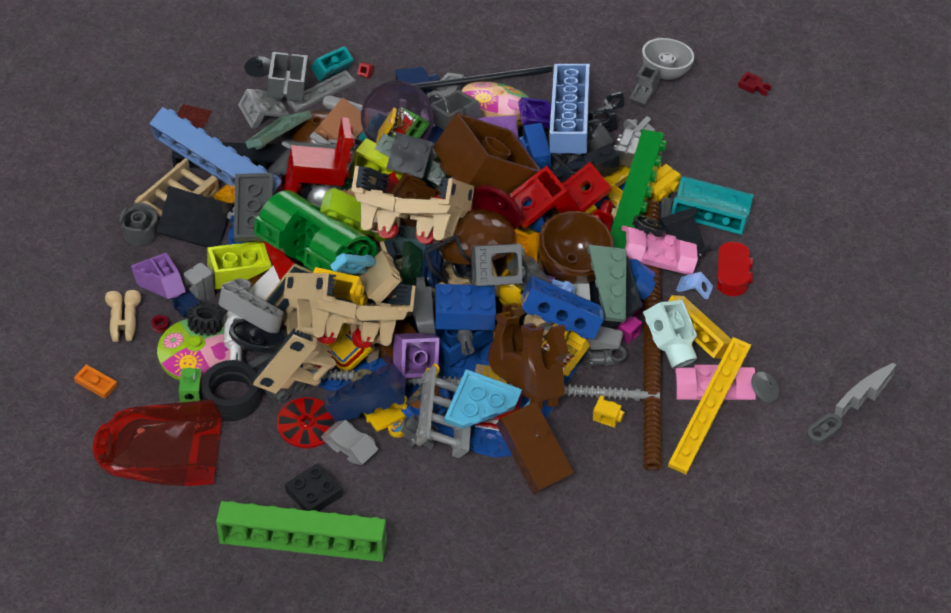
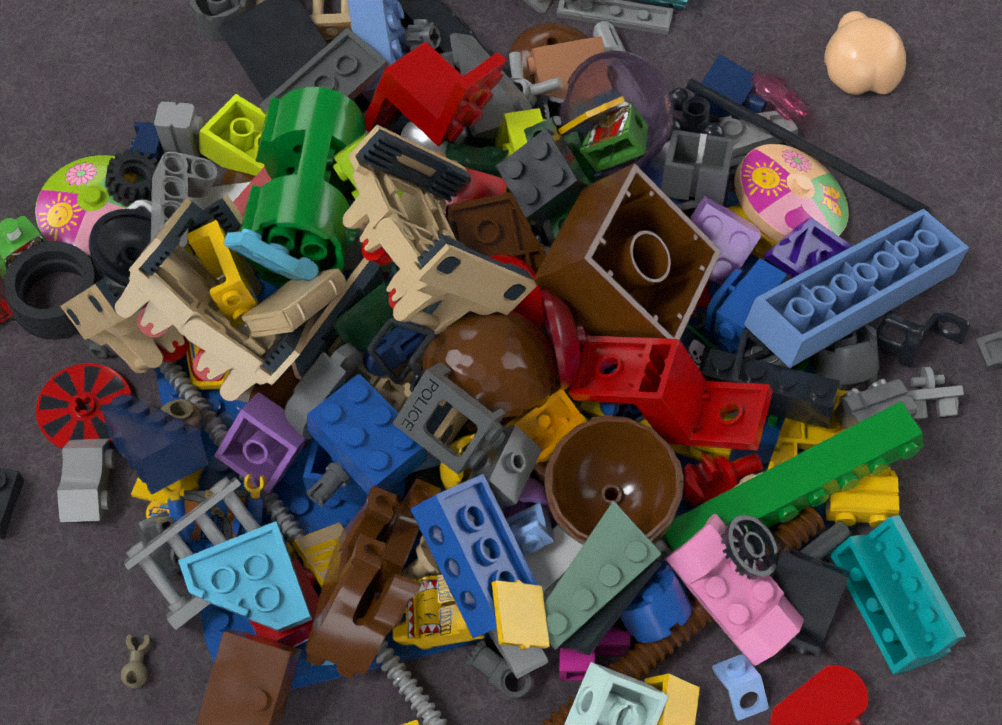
camera: 50 degrees right, 10 degrees up
(115, 301) = (77, 100): tan piece -> none
(158, 319) = (101, 133): dark red bush -> none
(159, 276) = (154, 80): medium lavender wedge -> none
(261, 158) = (421, 32): none -> dark grey gear
(277, 128) = (488, 14): sand green wing -> none
(366, 67) = (693, 27): red piece -> none
(434, 67) = (772, 89): none -> clear pink wing
(453, 25) = (865, 55): none -> light nougat piece
(466, 486) = (135, 668): none -> dark tan arm
(603, 312) = (520, 614): none -> yellow piece

